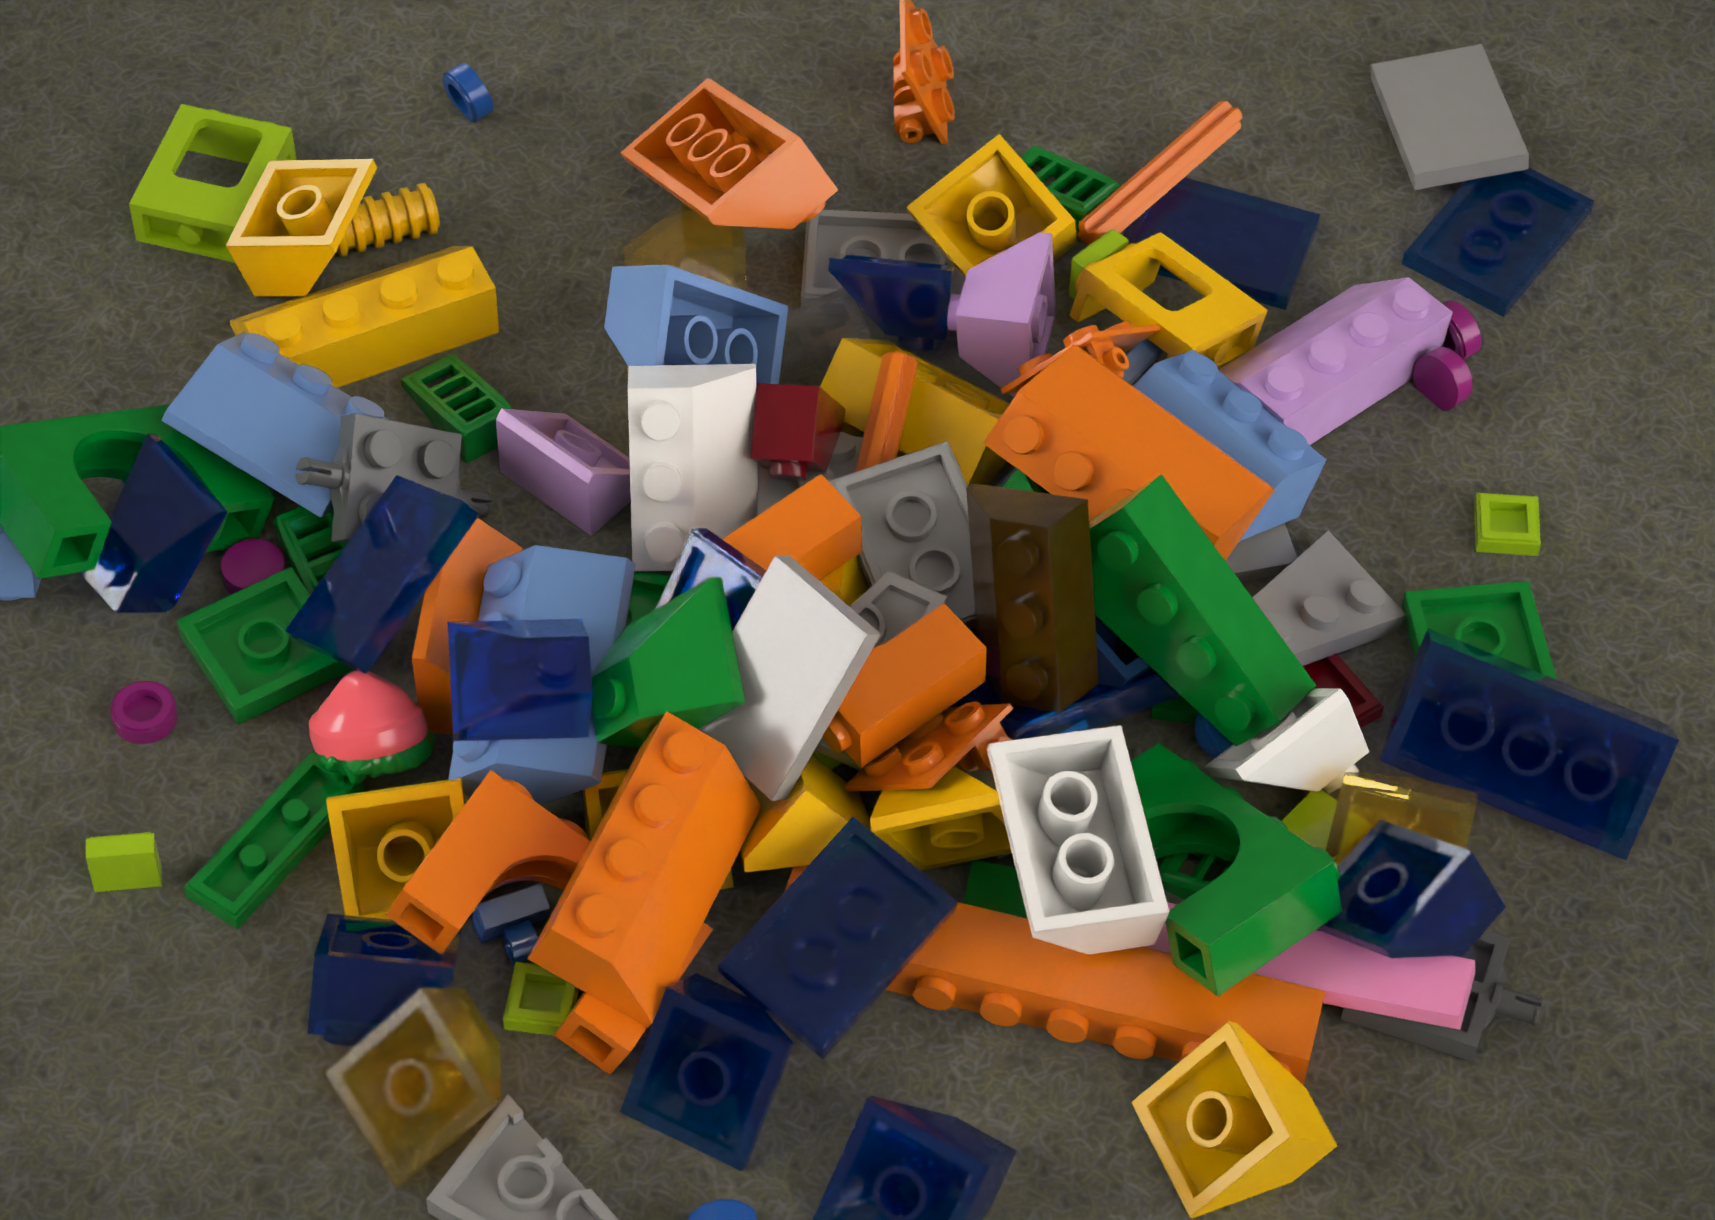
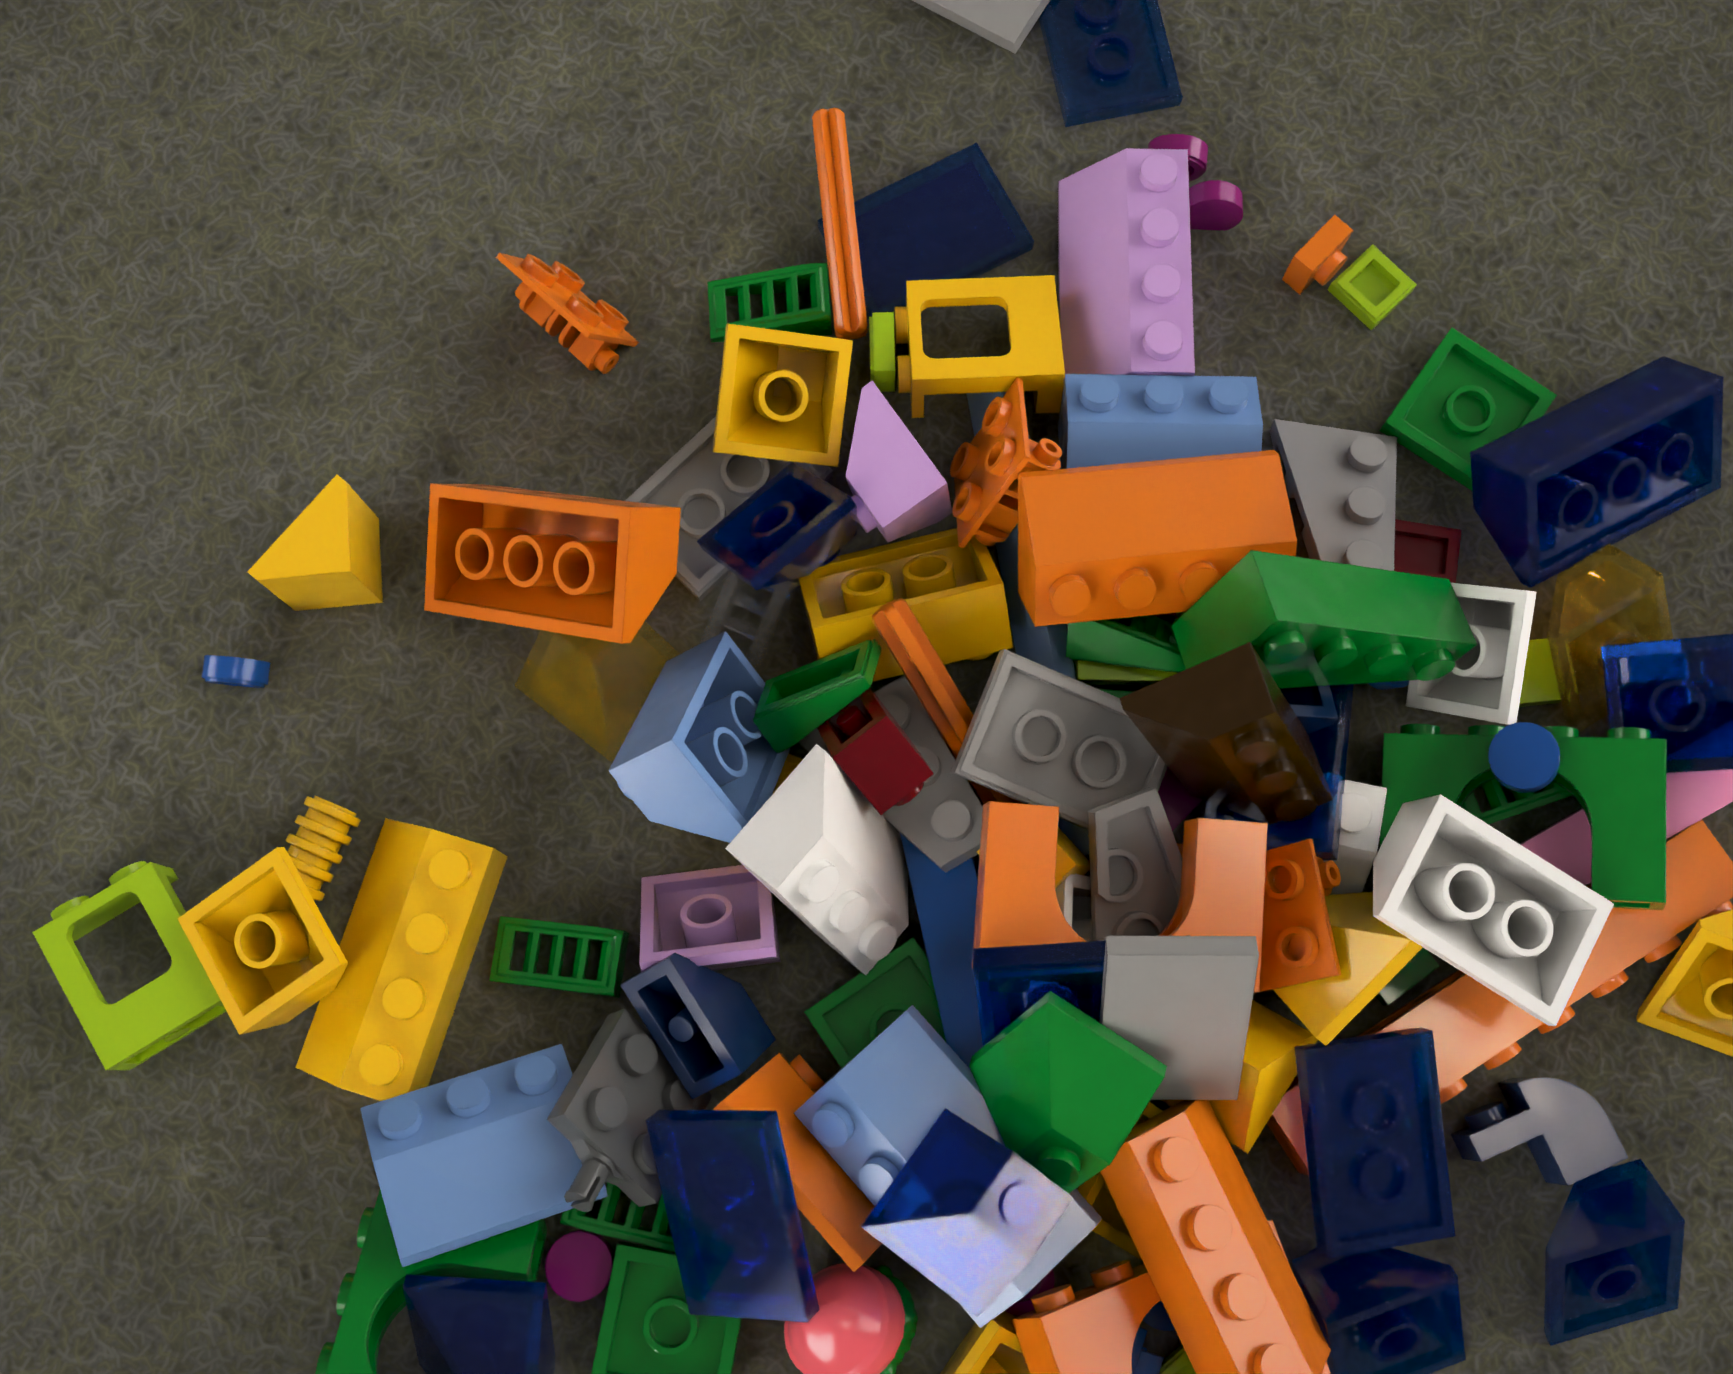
camera: 45 degrees left, 25 degrees up
(503, 476) = (699, 1021): none -> dark blue slope
(599, 67) = (326, 554): none -> yellow slope
(830, 376) = (813, 693): none -> green slope
(981, 1068) = (1555, 1119): none -> brick
(1225, 802) = (1524, 757): none -> blue tile
(1483, 463) = (1319, 256): none -> orange plate

